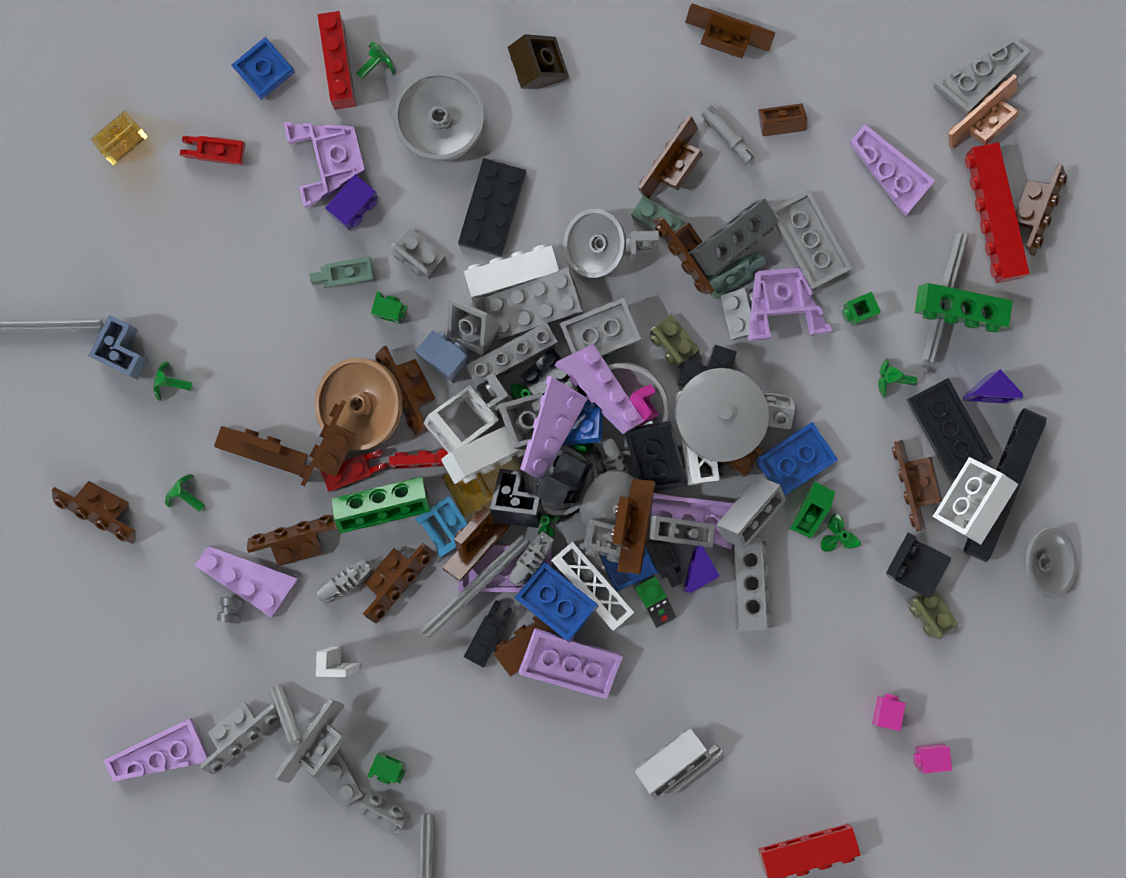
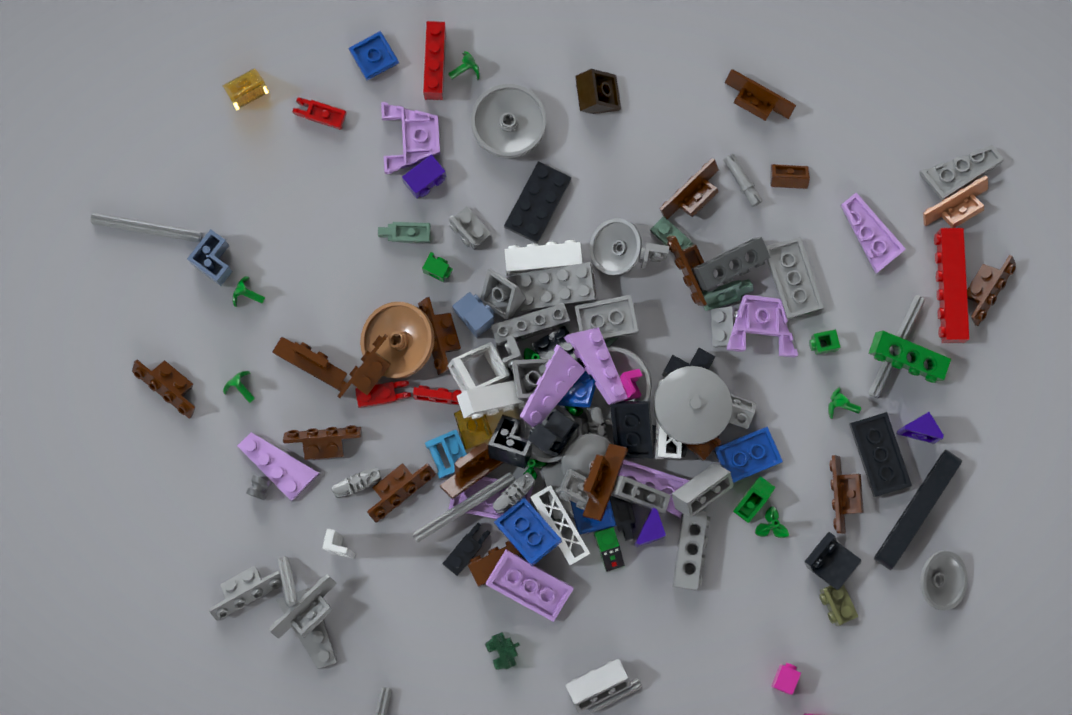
camera: 10 degrees right, 5 degrees down
(167, 750) = (184, 592): lavender wing -> none
(374, 806) = (344, 672): light grey hinge -> none
(380, 505) = (399, 425): green brick -> none
(387, 769) = (361, 644): green brick -> none
(557, 743) = (505, 649): none -> clear green hips
(673, 340) = (665, 338): olive bracket -> none
(975, 500) = (889, 515): white brick -> none

